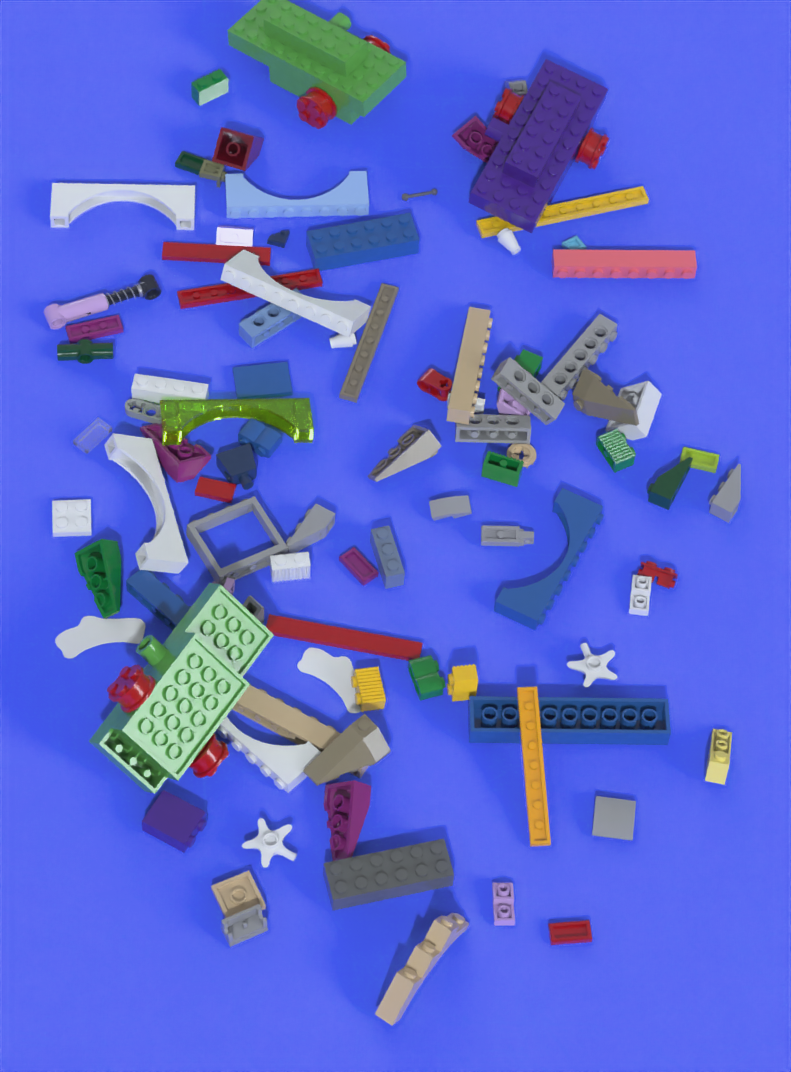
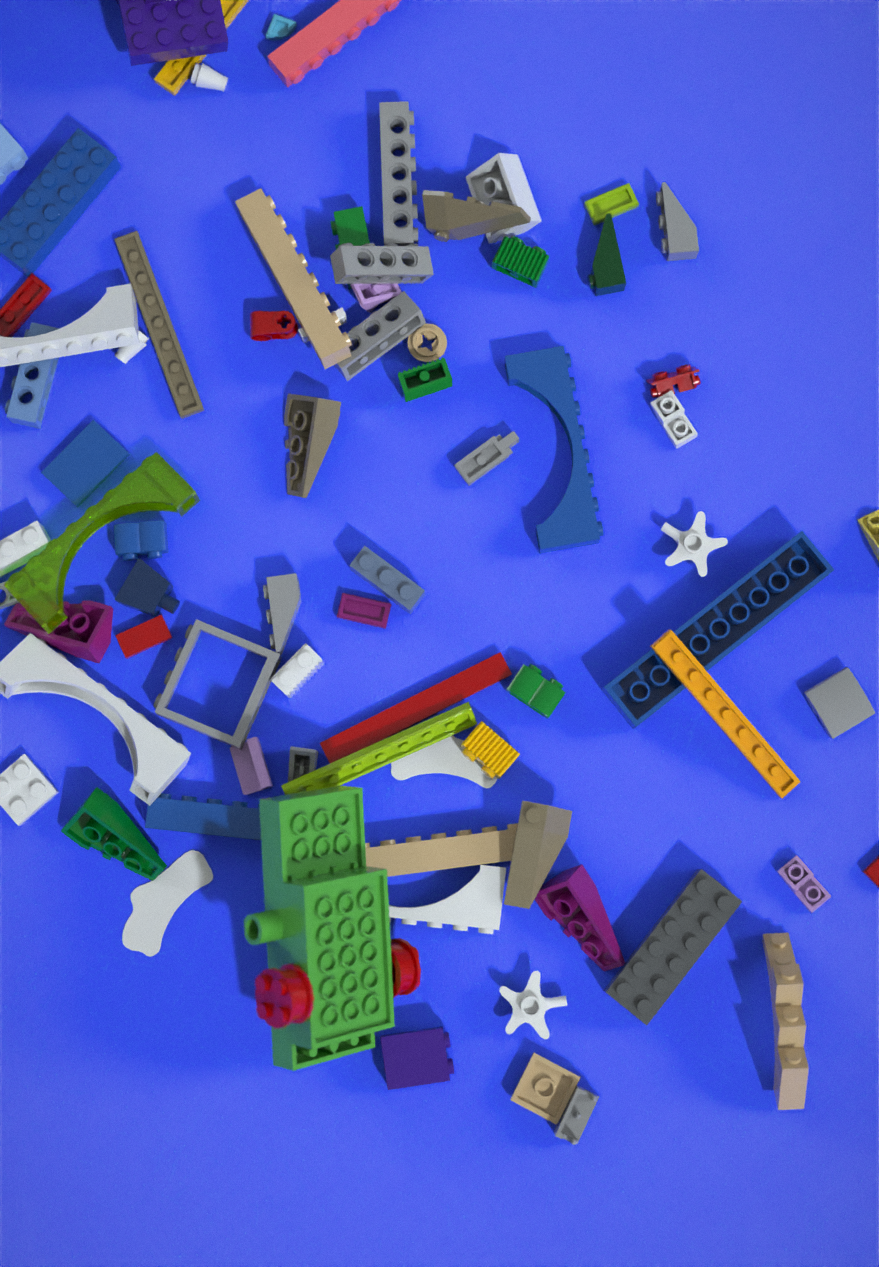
camera: 30 degrees left, 25 degrees up
(322, 648) = (385, 751): none -> lime tile
(405, 197) = (50, 103): dark grey hinge -> none
(450, 506) = (404, 467): light grey slope -> none
(462, 682) = (582, 672): yellow brick -> none

